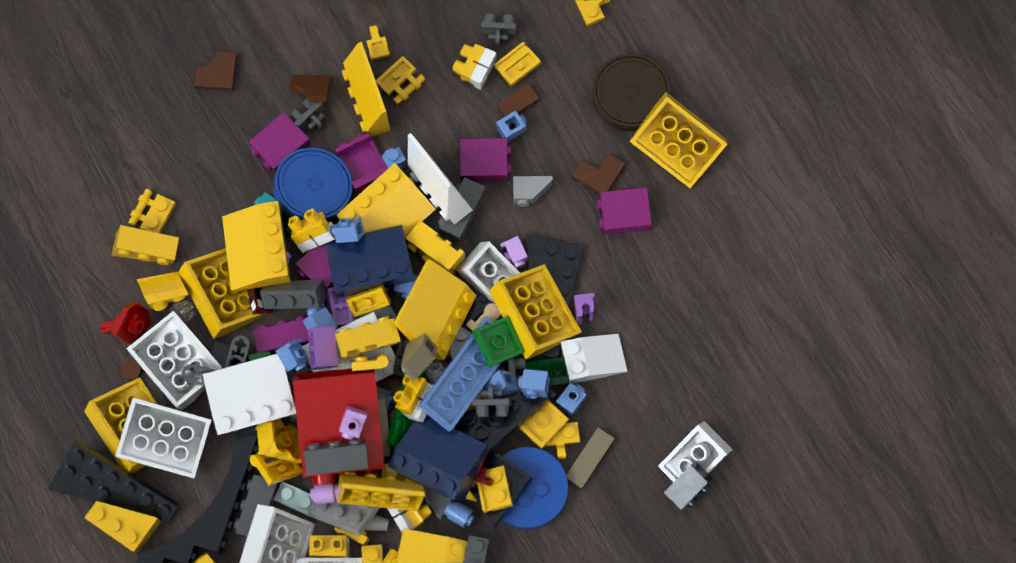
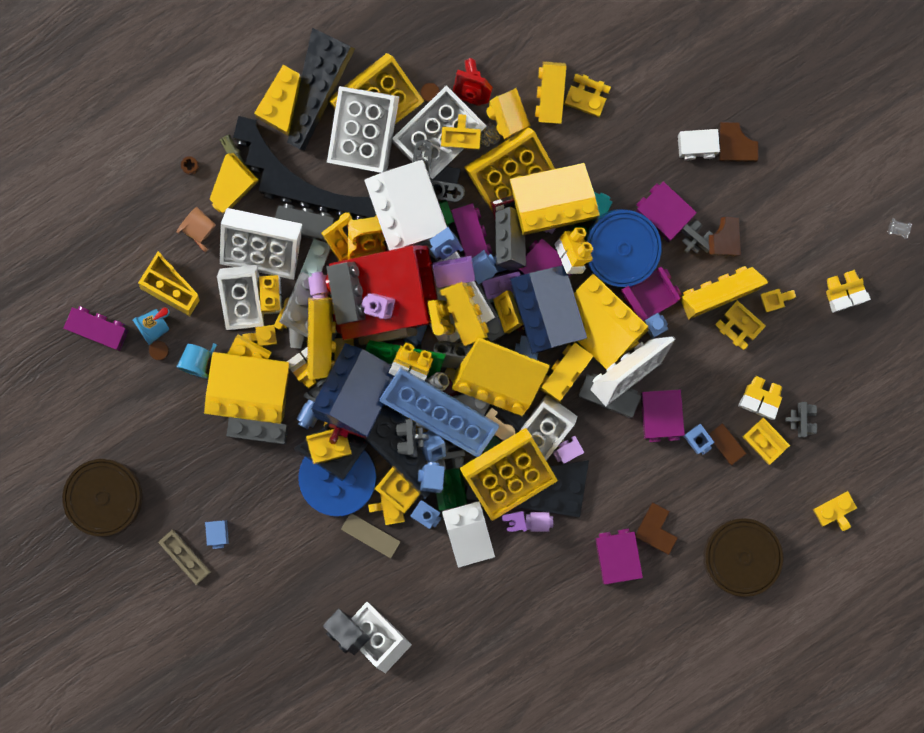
camera: 85 degrees right, 10 degrees up
(181, 335) = (461, 136): none -> yellow plate
(213, 107) = (698, 143): none -> white brick
(348, 230) = (575, 286): medium blue brick -> none
(418, 356) = (447, 363): dark tan slope -> none
(498, 341) = (472, 440): green plate -> none
(529, 189) = (634, 460): light grey slope -> none
(585, 283) = (539, 521): none -> lavender brick
(678, 140) = (694, 607): yellow slope -> none

